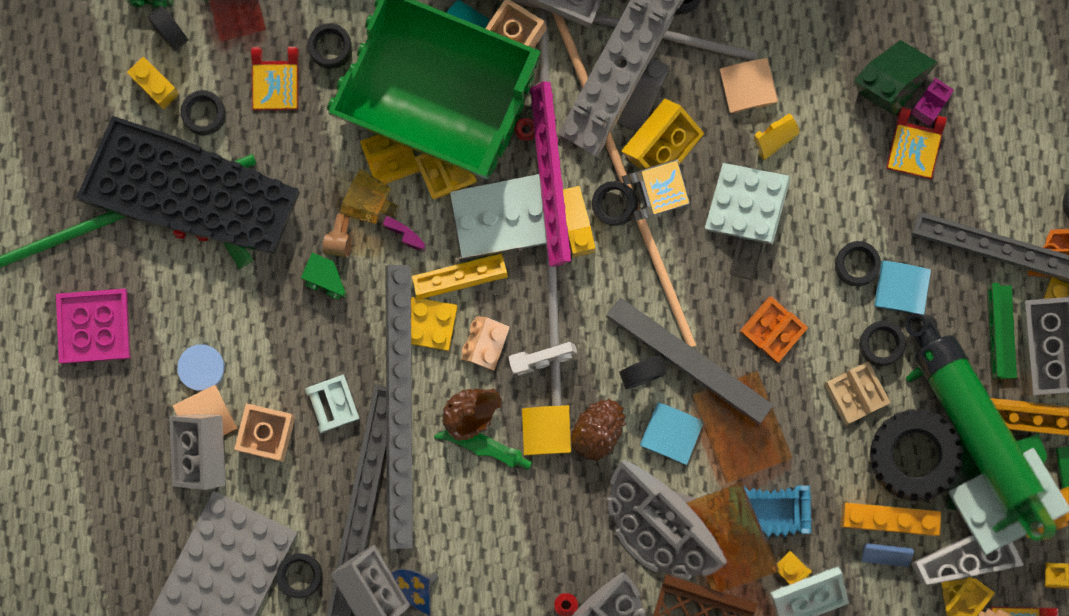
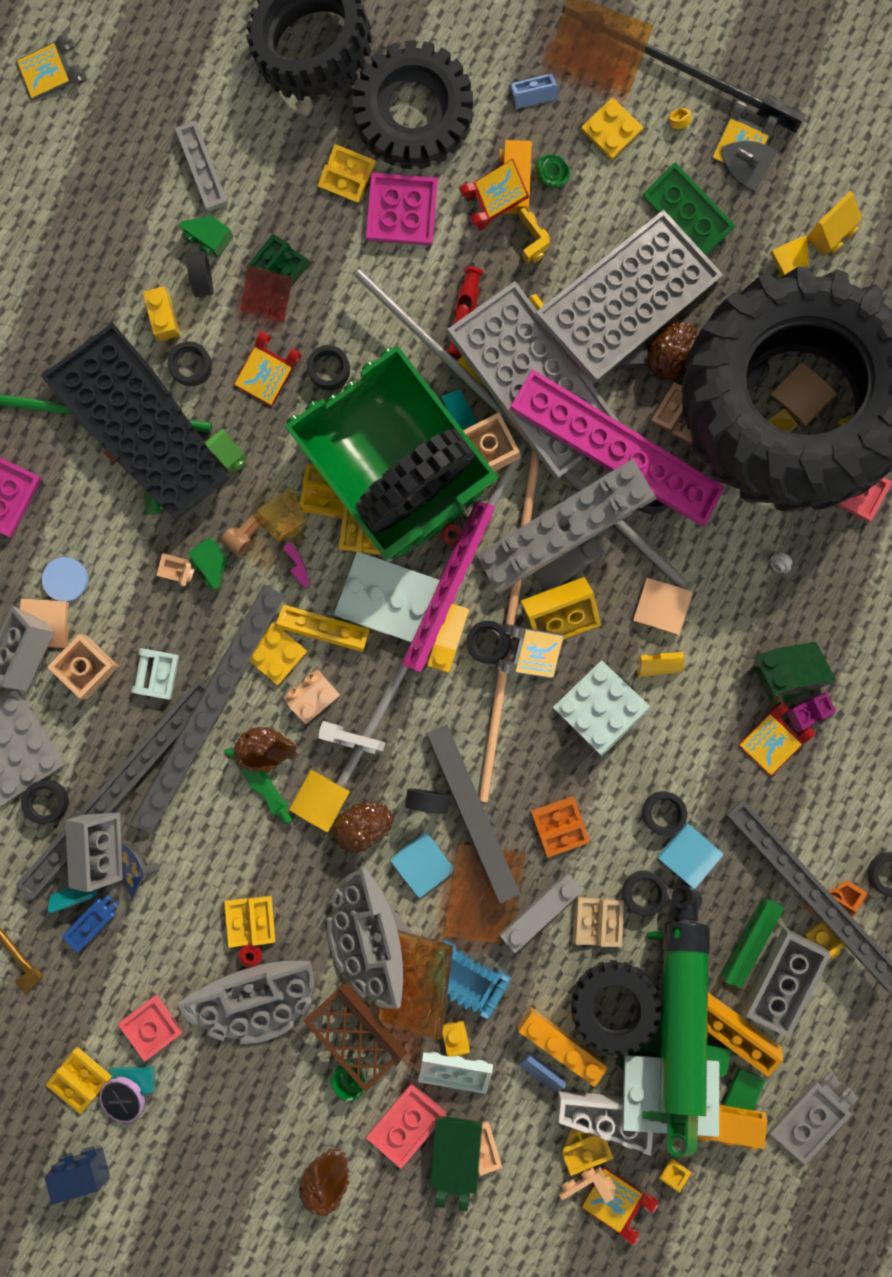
camera: 30 degrees right, 5 degrees up
(283, 168) = (226, 451): none -> bright green slope
(298, 299) = (175, 569): none -> light nougat bracket
(470, 94) = (414, 480): none -> black tyre
(546, 575) = (249, 921): none -> yellow slope
(801, 414) = (540, 912): none -> light grey plate

